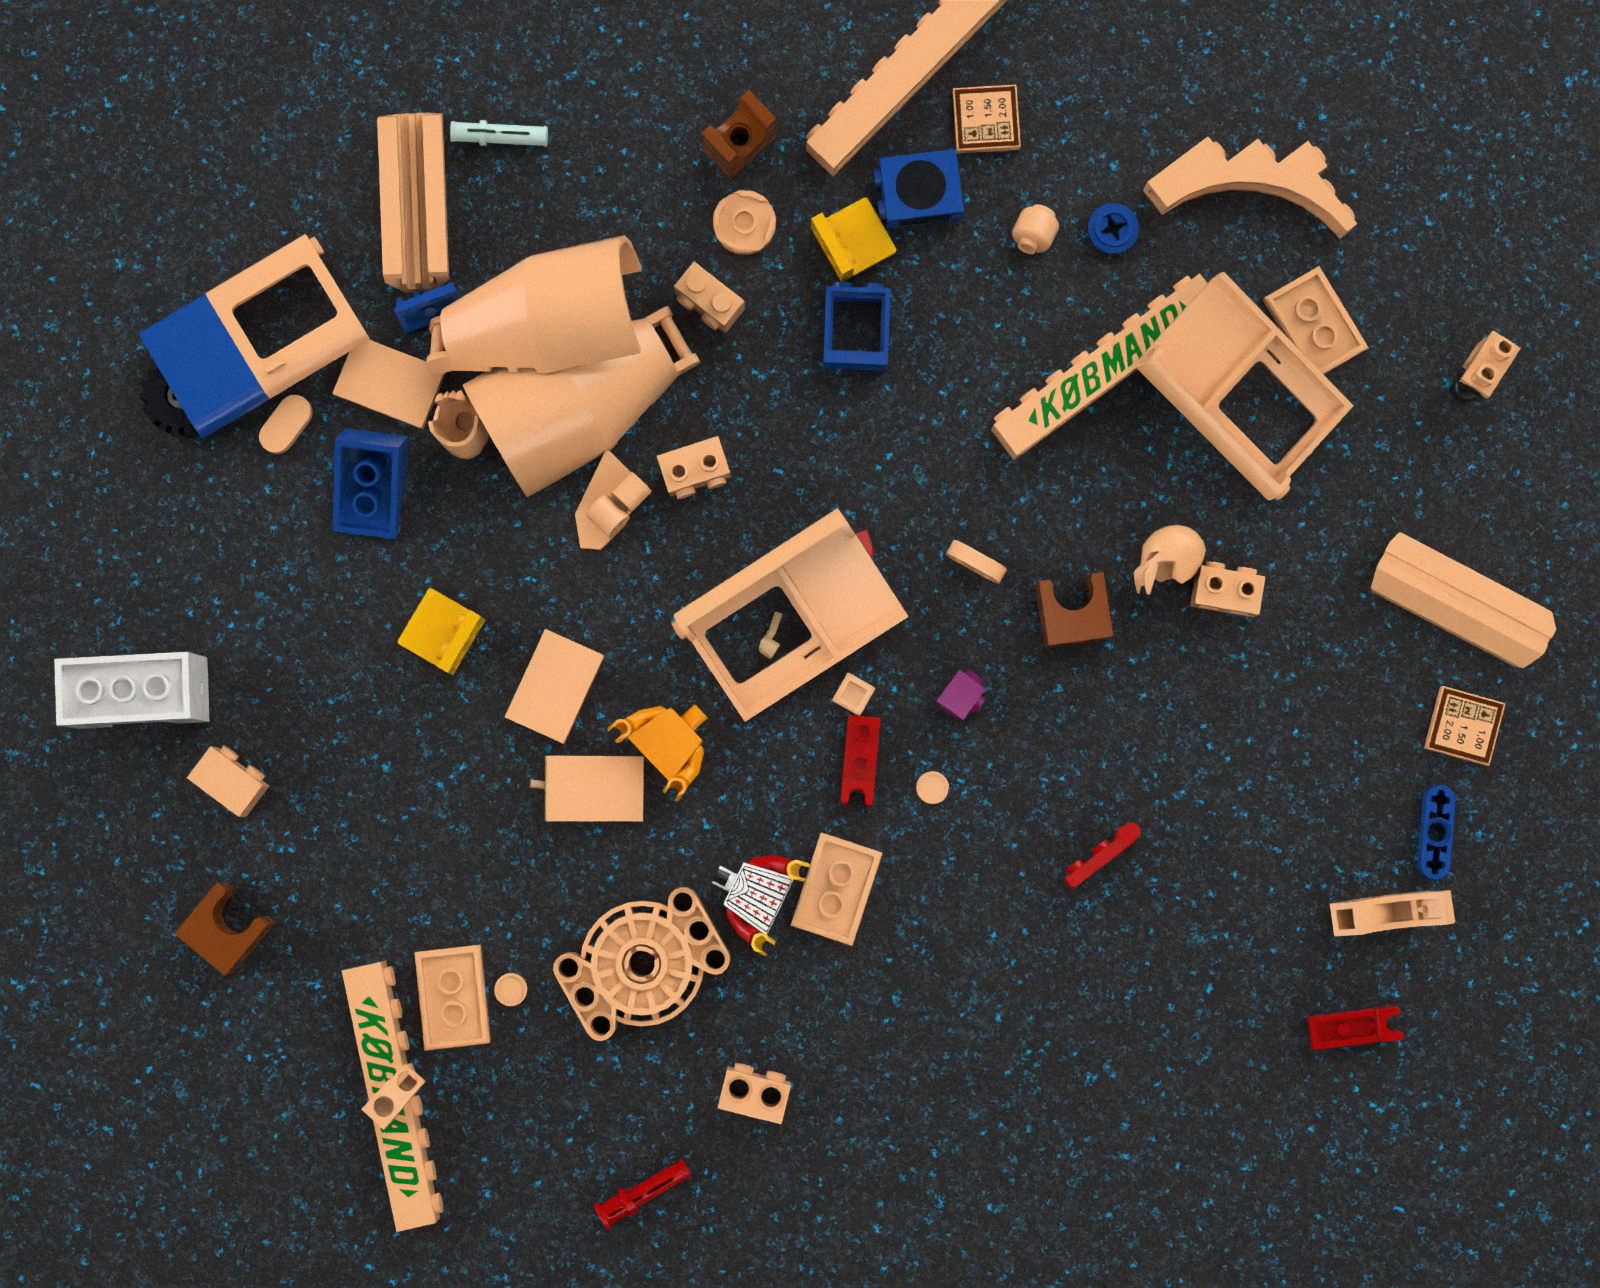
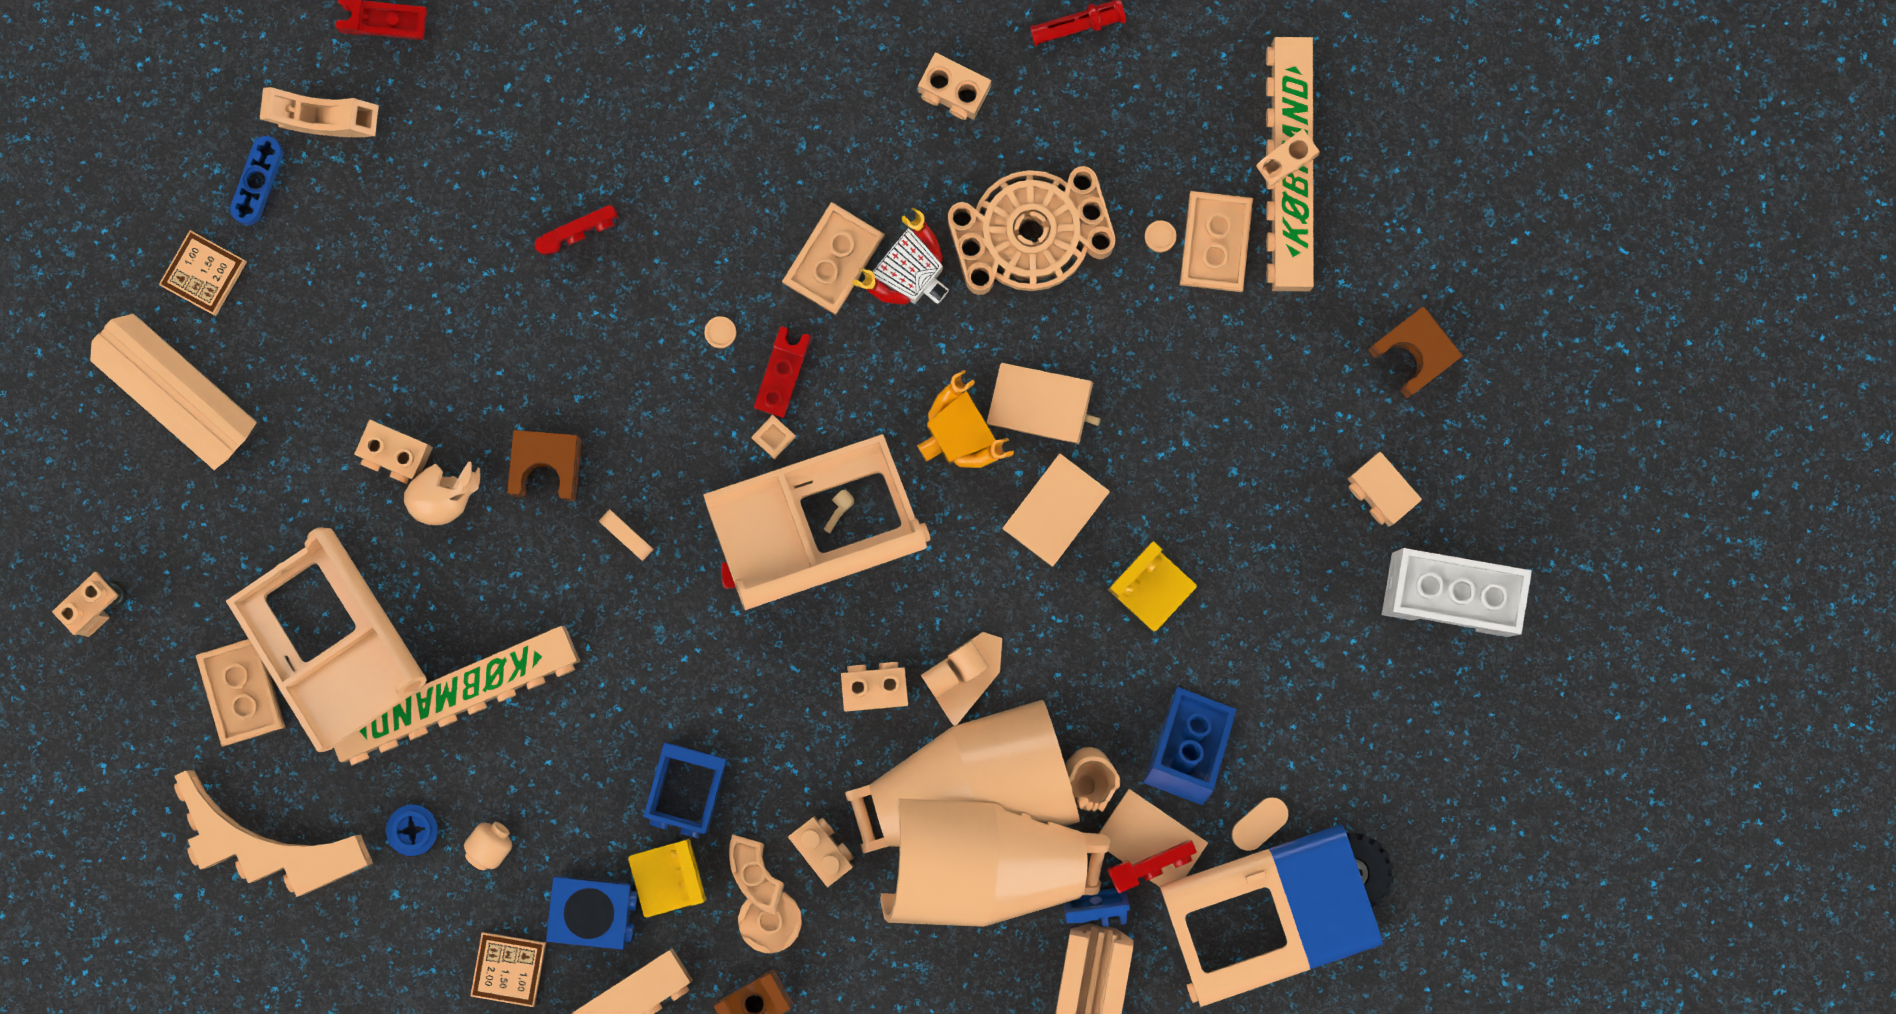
camera: 165 degrees left, 0 degrees up
(382, 354) = (1126, 875): none -> red plate
(771, 260) = (751, 874): none -> light nougat tile
(962, 695) = (670, 411): magenta brick -> none

